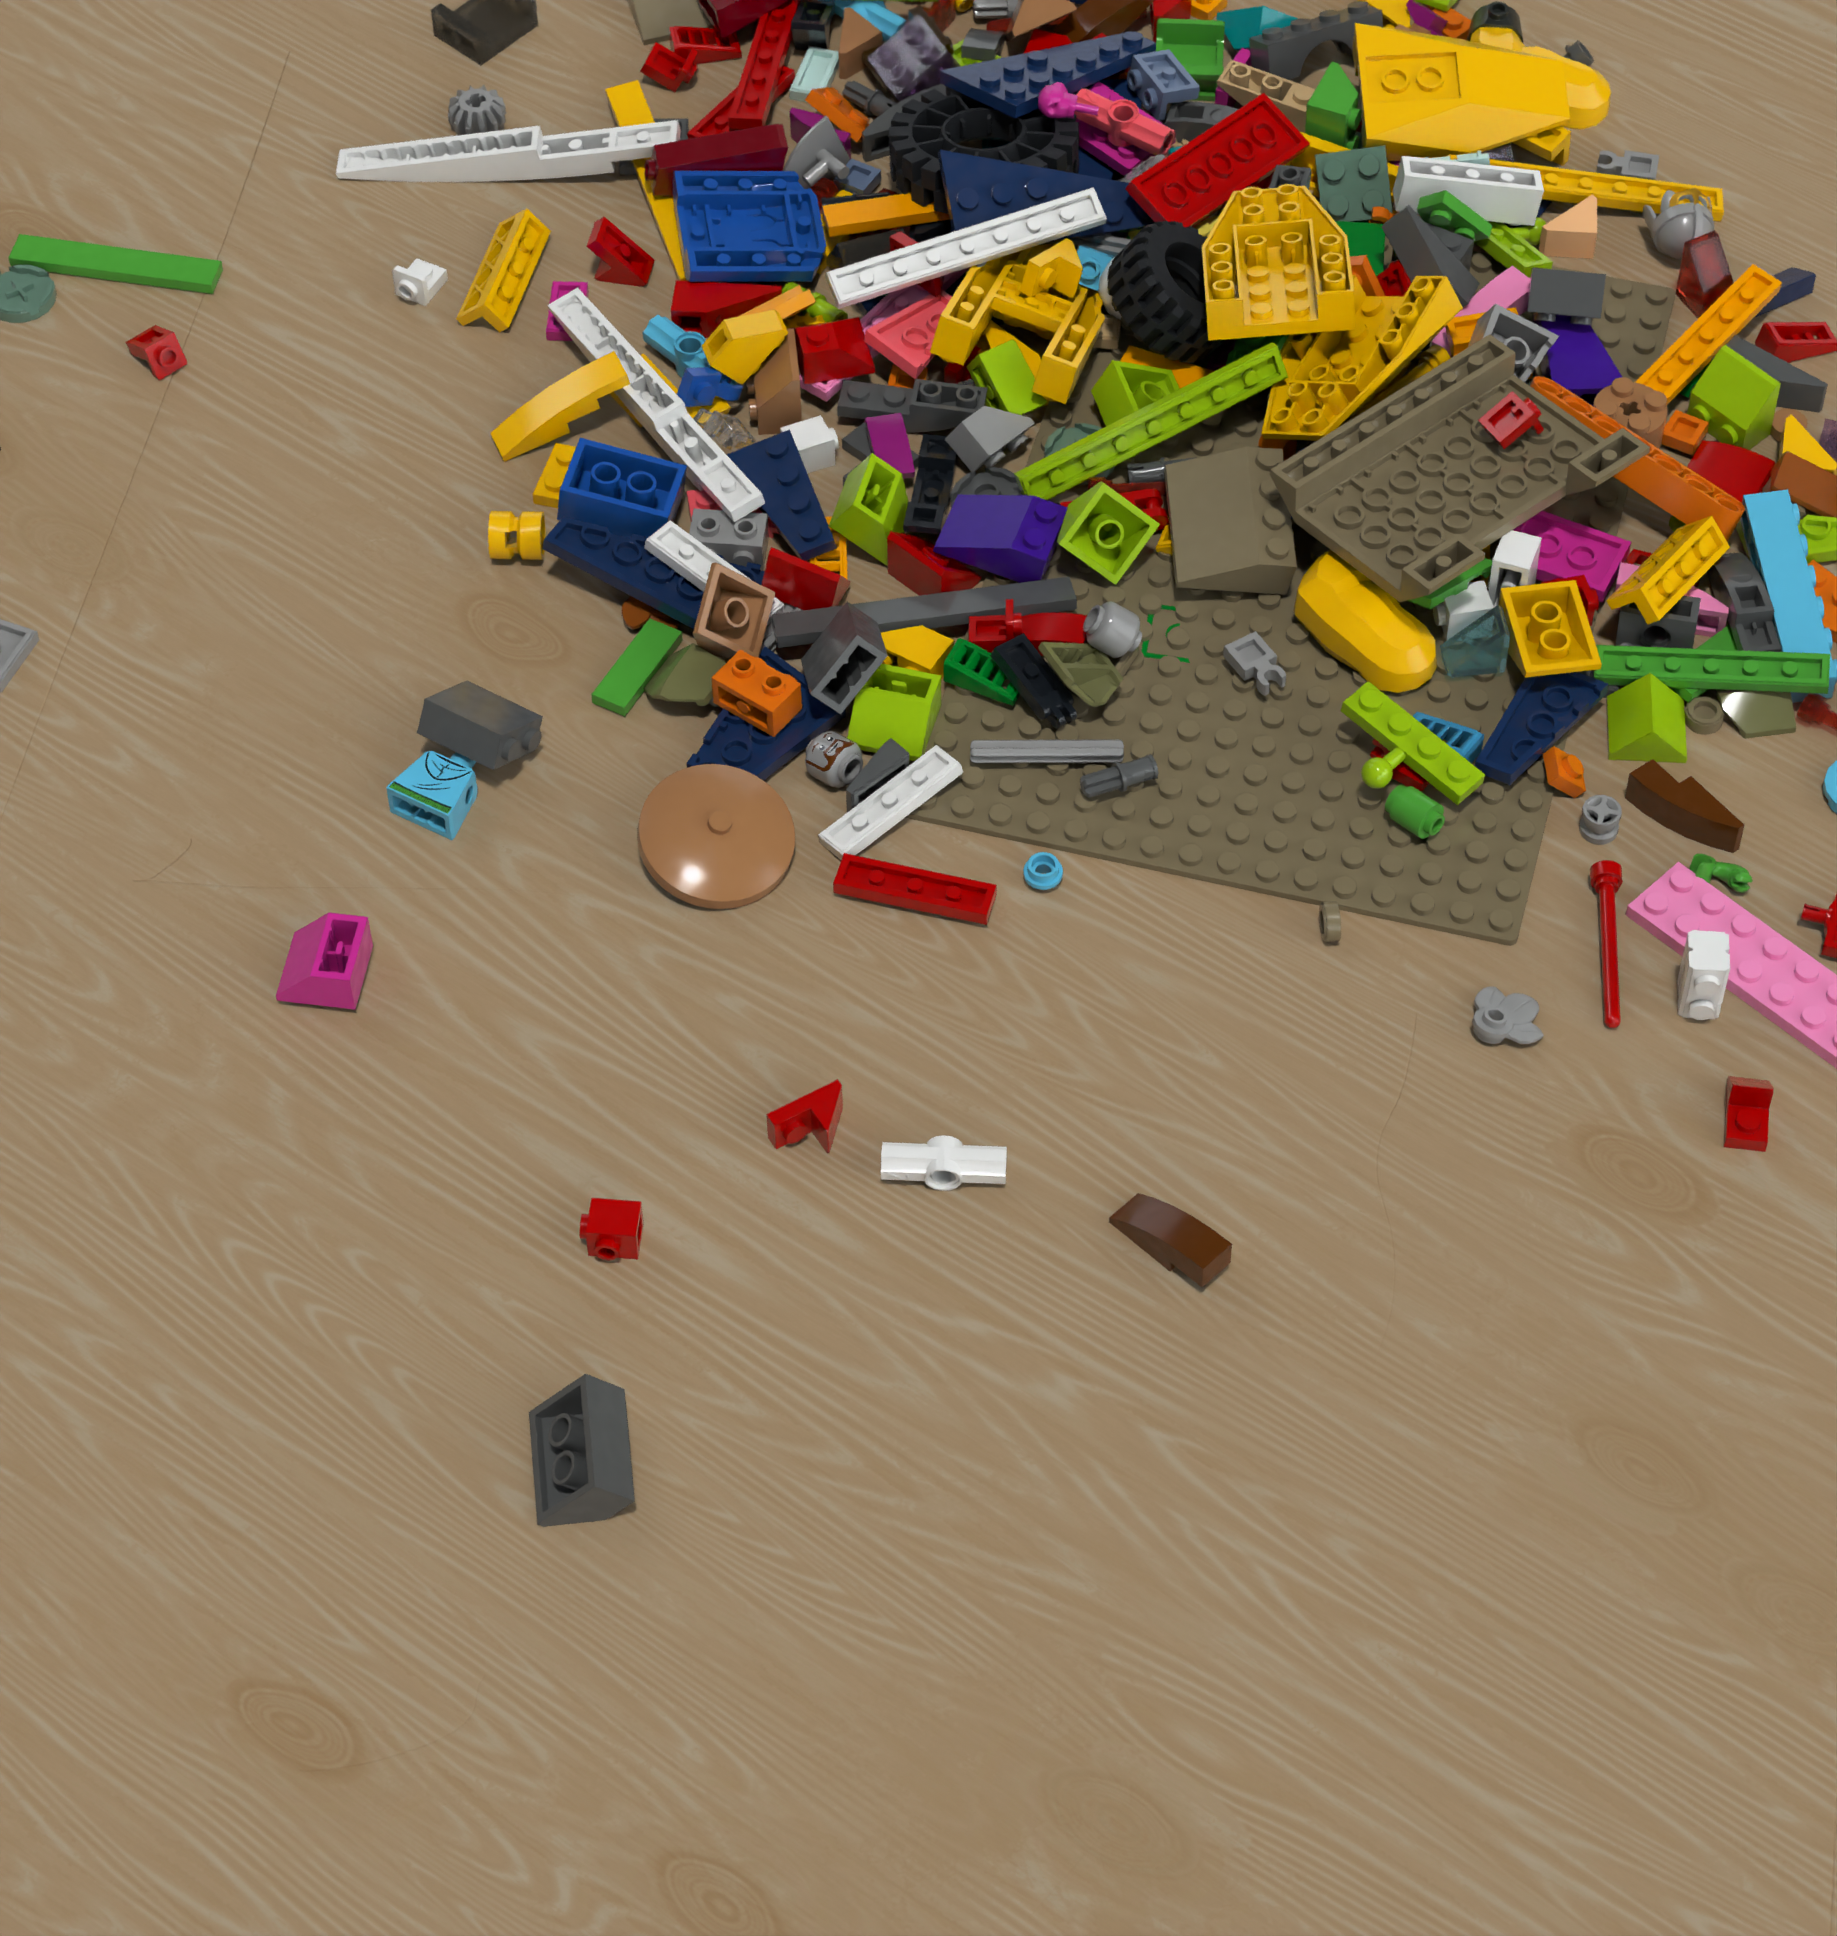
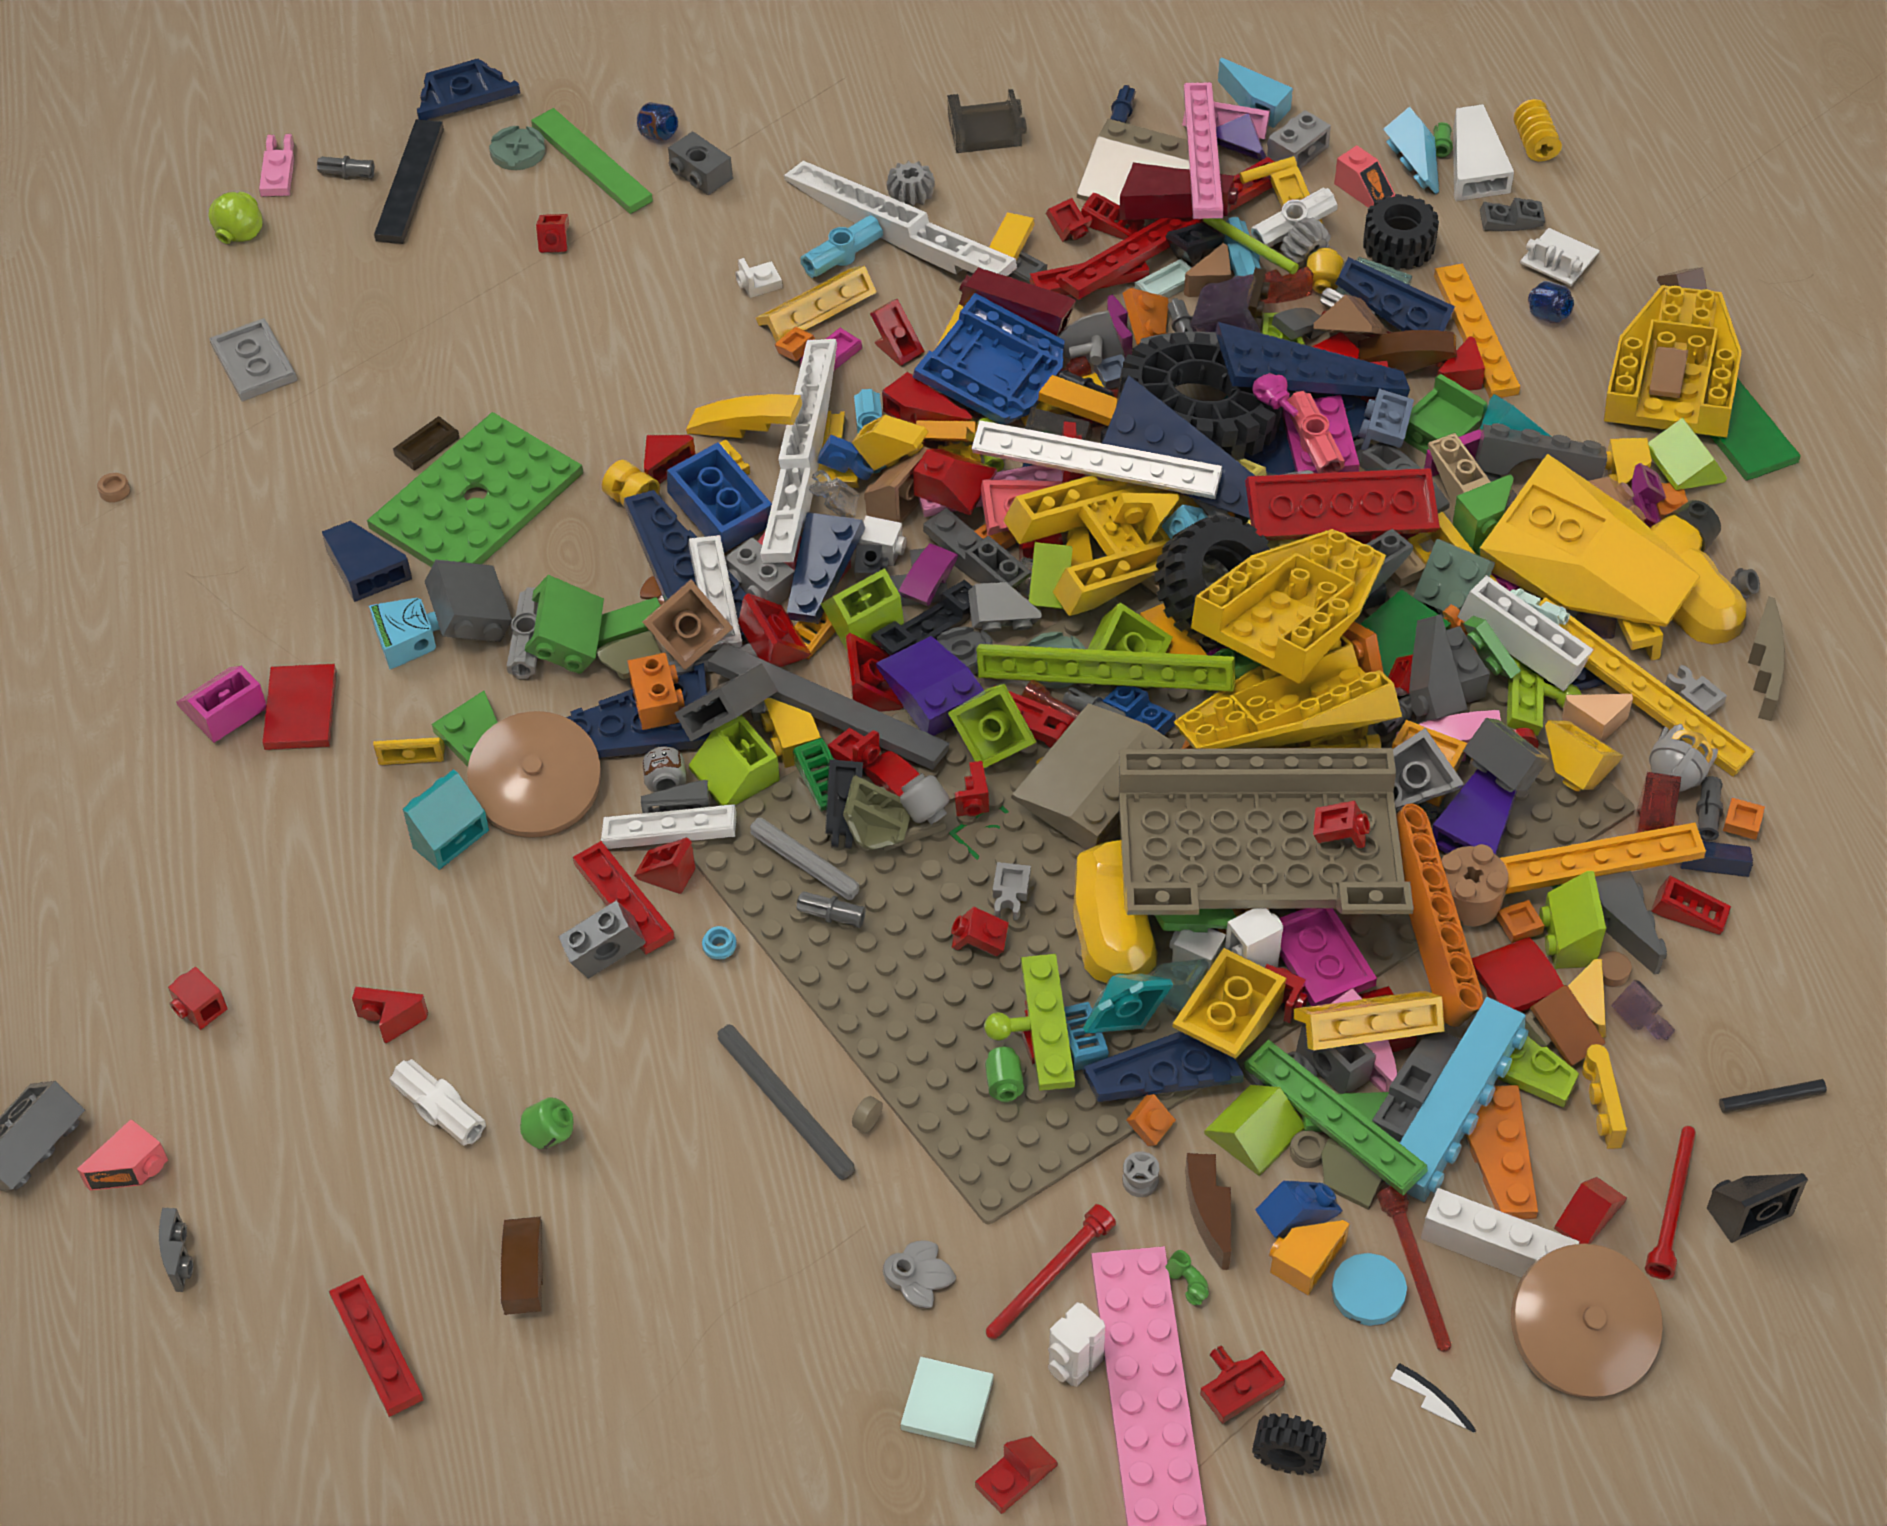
camera: 40 degrees right, 0 degrees up
(149, 189) = (657, 121): none -> clear blue head
(240, 205) = (700, 163): none -> dark grey brick
(251, 618) = (426, 443): none -> dark brown tile
(319, 756) = (364, 560): none -> dark blue slope
(371, 682) = (513, 467): none -> bright green plate
(408, 924) = (299, 706): none -> red tile
(474, 206) = (841, 246): none -> medium azure piece
(513, 485) = (665, 452): none -> red slope
(528, 319) = (793, 343): none -> orange plate
(564, 722) = (520, 662): none -> light grey piece
(565, 894) = (409, 751): none -> yellow slope
(602, 843) = (465, 726): none -> bright green wing
(607, 683) = (565, 624): none -> bright green panel
(682, 926) = (445, 820): none -> teal slope
(710, 1403) = (124, 1160): none -> coral slope
(824, 469) = (869, 561): none -> black plate
(848, 1449) = (172, 1248): none -> dark grey slope
(926, 835) = (668, 866): none -> red slope
(947, 929) = (602, 939): none -> dark grey brick
(1068, 1110) = (546, 1123): none -> bright green head
(1117, 1390) = (376, 1346): none -> red plate
(1139, 597) = (976, 795): none -> red bracket
(1191, 445) = (1136, 705): none -> blue slope
(1245, 959) = (786, 1102): none -> dark grey axle
(1265, 711) = (980, 930): none -> red bracket
(1459, 682) = (1127, 1003): none -> teal slope
(1617, 264) = (1579, 756): none -> yellow slope
(1636, 1097) = (947, 1402): none -> light aqua tile
(1656, 102) = (1769, 655): none -> dark tan slope
(1735, 252) = (1709, 808): none -> dark grey pin
(1751, 761) = (1297, 1205): none -> blue slope
(1768, 246) = (1743, 818): none -> orange plate
(1794, 792) = (1307, 1253): none -> light orange slope

